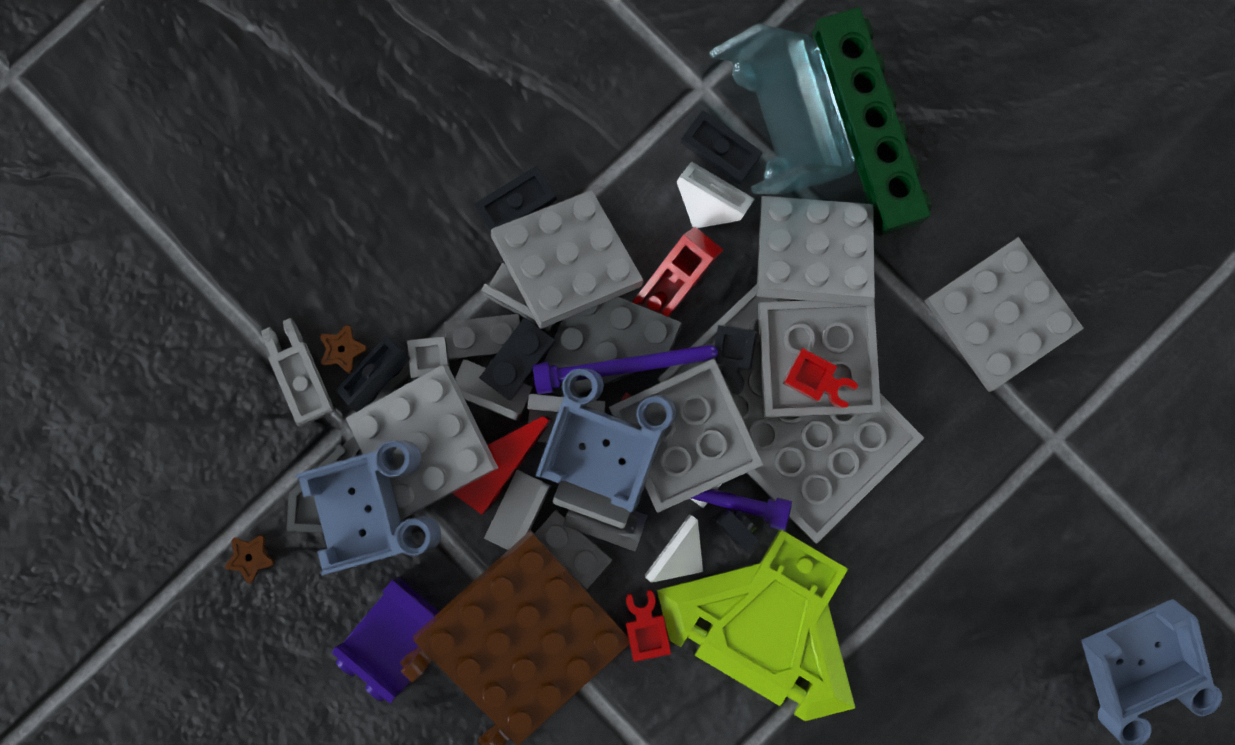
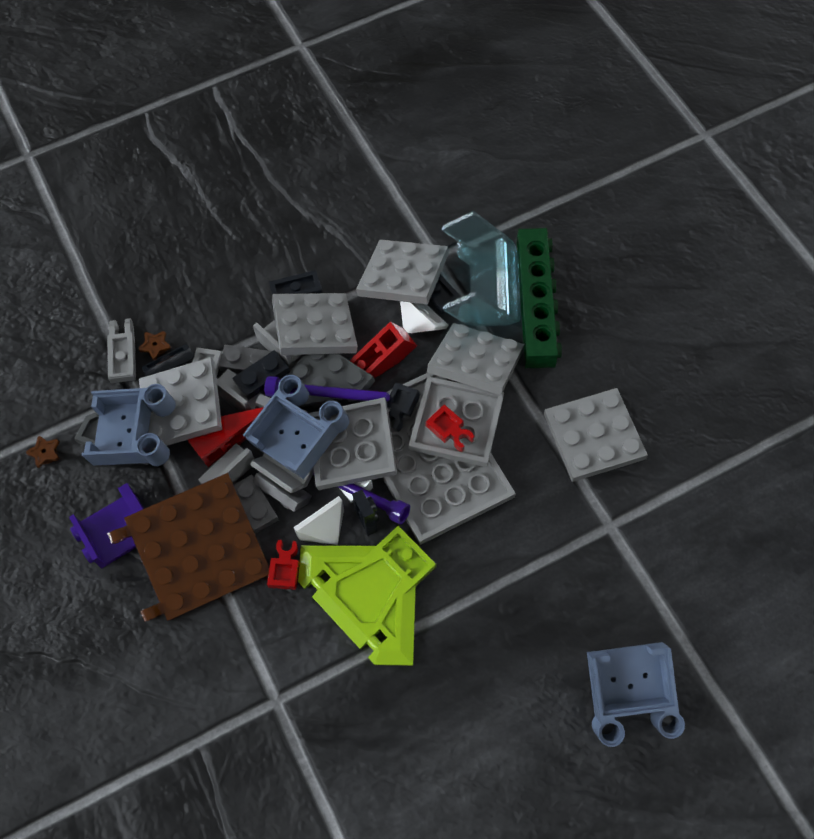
camera: 20 degrees right, 20 degrees down
(667, 135) = (403, 271): none -> light grey plate

